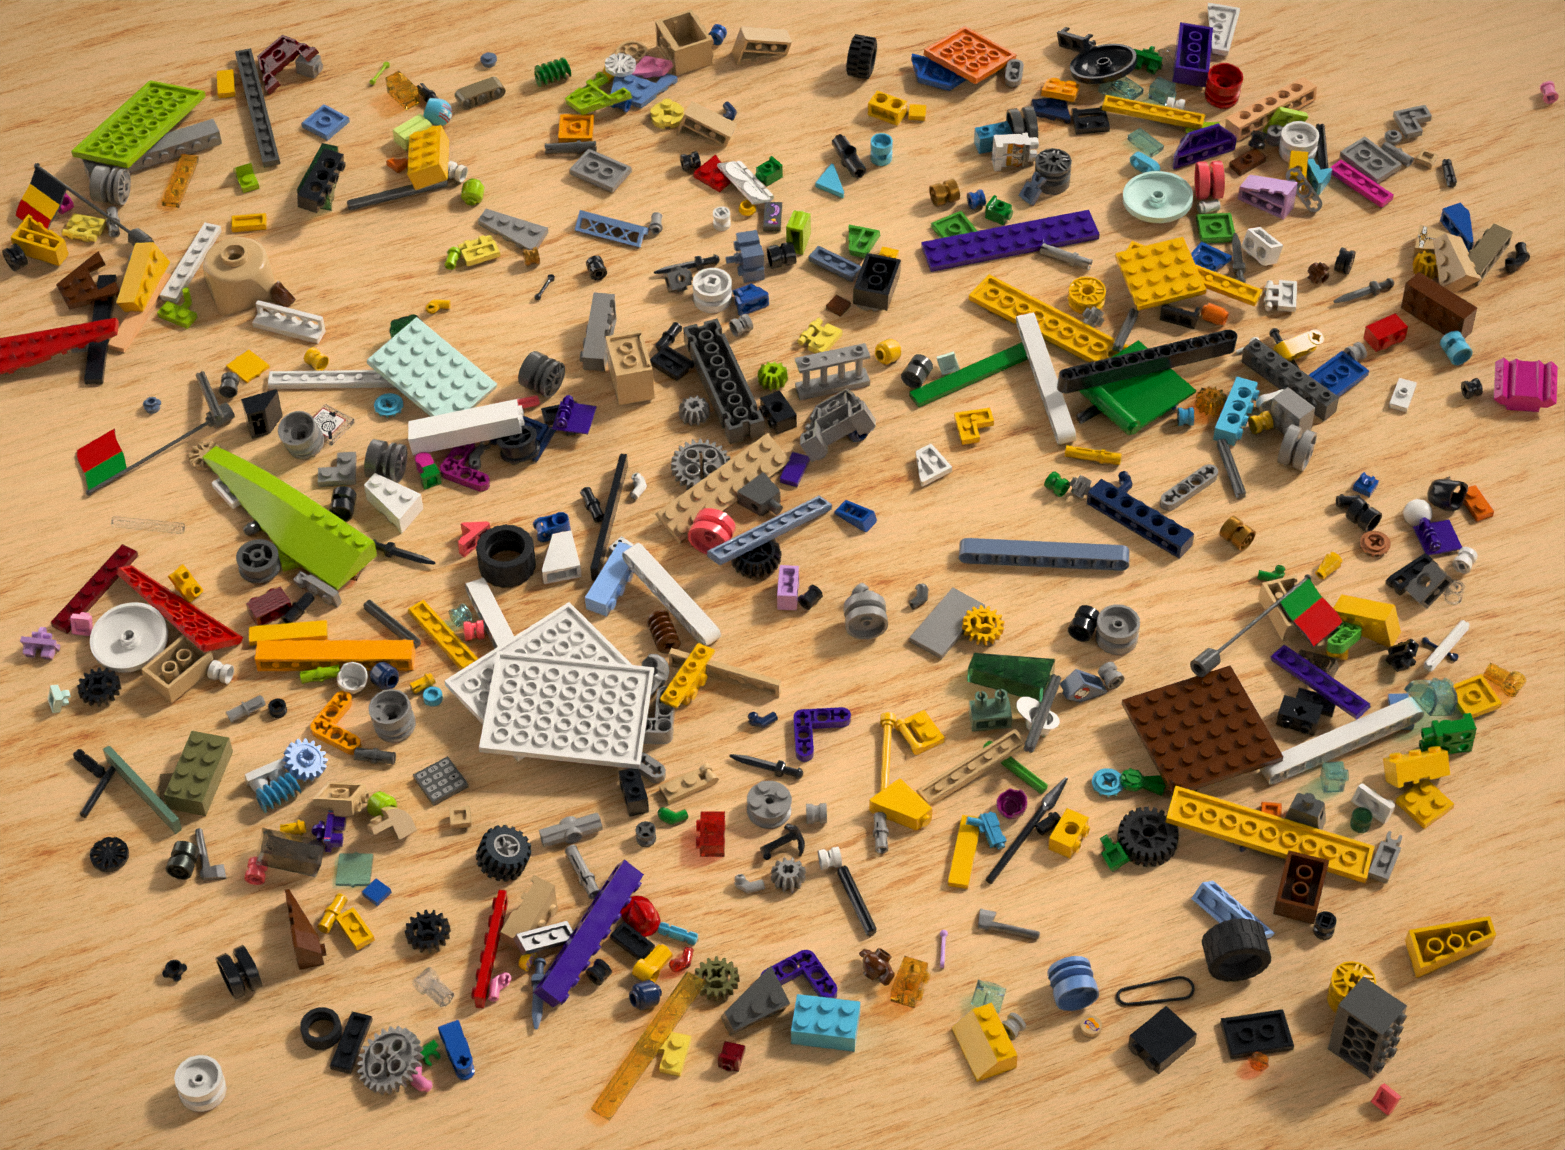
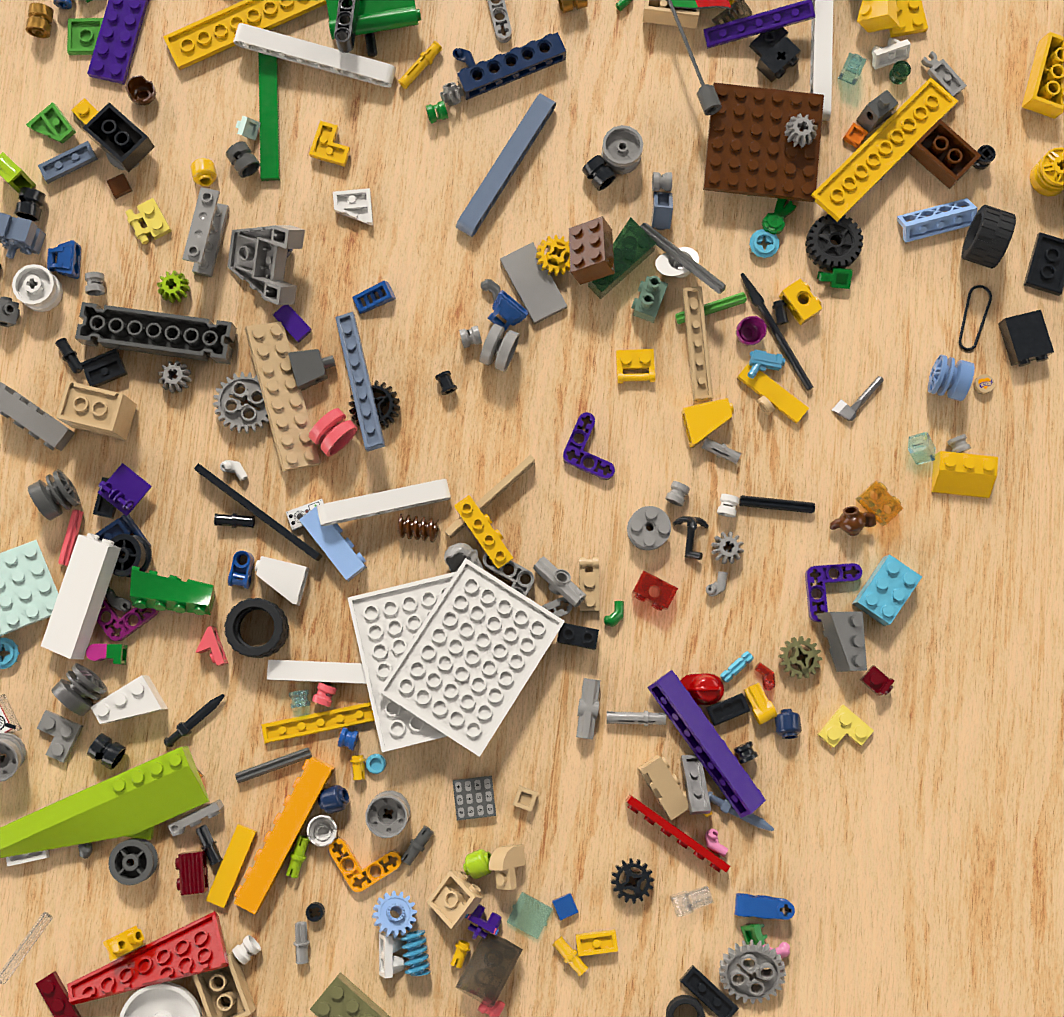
camera: 65 degrees left, 30 degrees up
(304, 937) = (594, 994): reddish brown wedge -> none
(444, 664) = (348, 738): none -> blue wheel
(502, 484) = (170, 593): none -> green wedge
(503, 853) = (590, 780): black wheel -> none
(645, 828) = (627, 646): dark grey wheel -> none
(648, 1046) = (841, 745): clear yellow tile -> none
(676, 755) = (559, 581): none -> light grey piece
(755, 720) = (556, 490): dark blue arm -> none
(778, 412) = (210, 298): black brick -> none
(779, 768) = (612, 501): black sword -> none
(788, 587) = (429, 396): lavender brick -> none
(887, 721) = (613, 386): yellow piece -> none
(907, 611) = (507, 309): none -> blue piece
(930, 280) = (140, 90): none -> reddish brown hair
(943, 933) = (842, 451): lavender hinge -> none
(947, 847) = (765, 405): none -> tan tile
(1001, 640) = (591, 250): none -> reddish brown brick
(1227, 744) = (804, 124): none -> light grey gear

